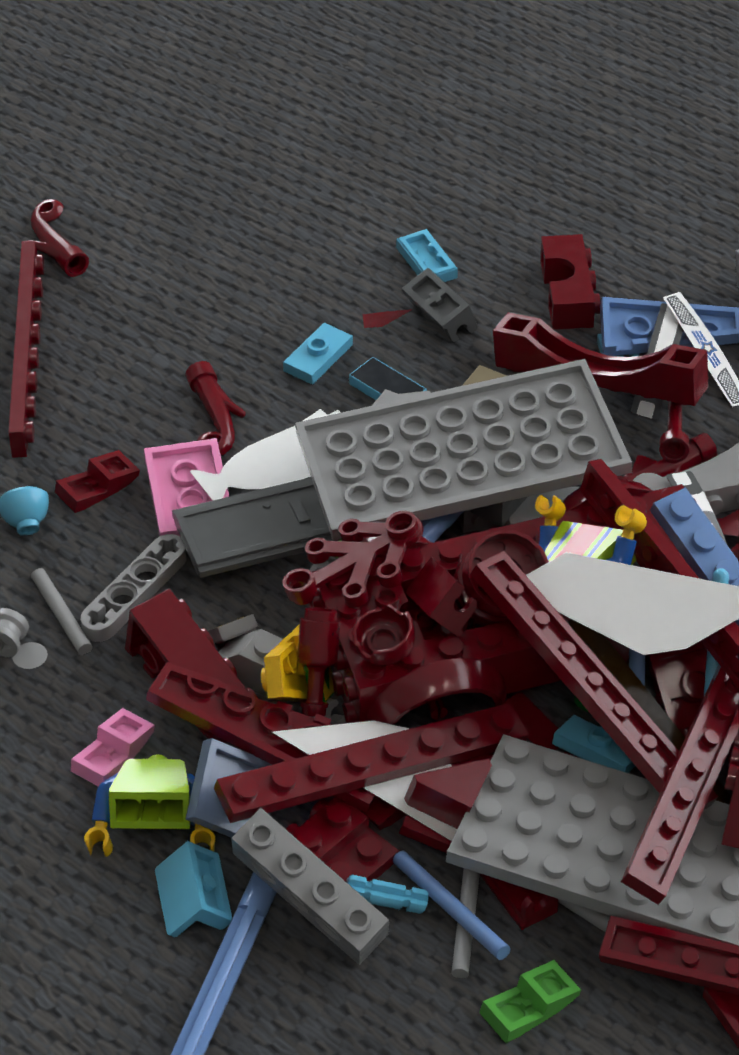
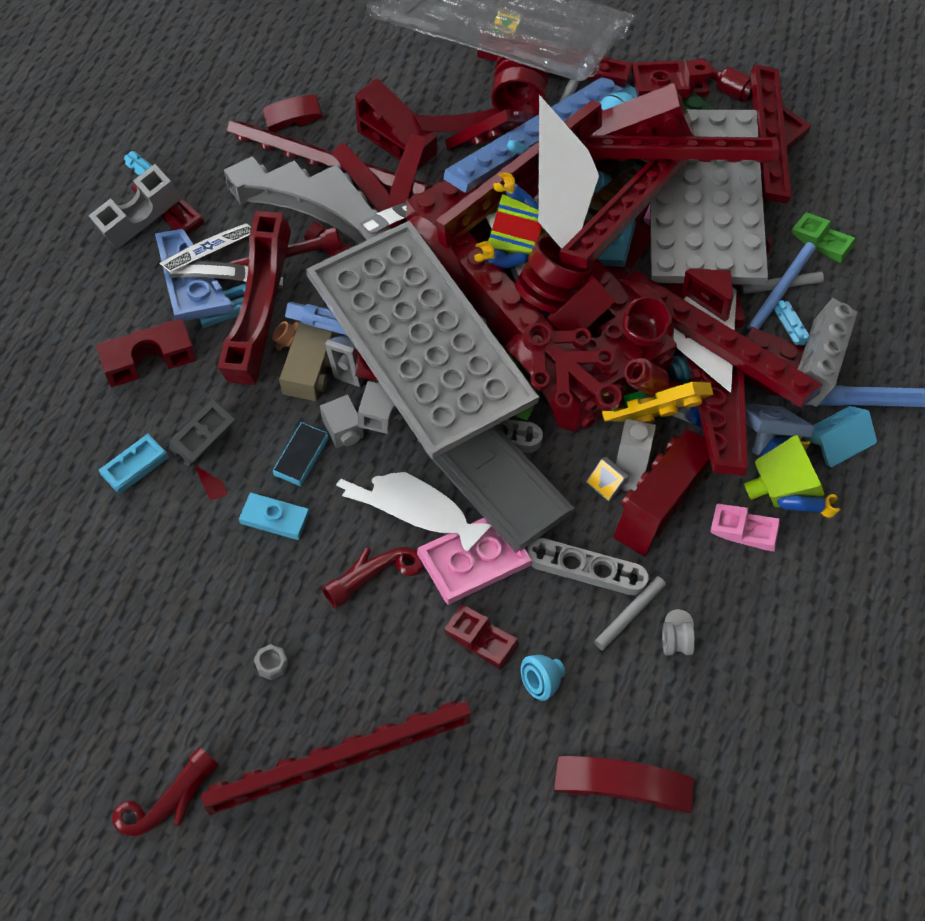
camera: 110 degrees left, 15 degrees up
(150, 321) = (271, 662): none -> light grey tile

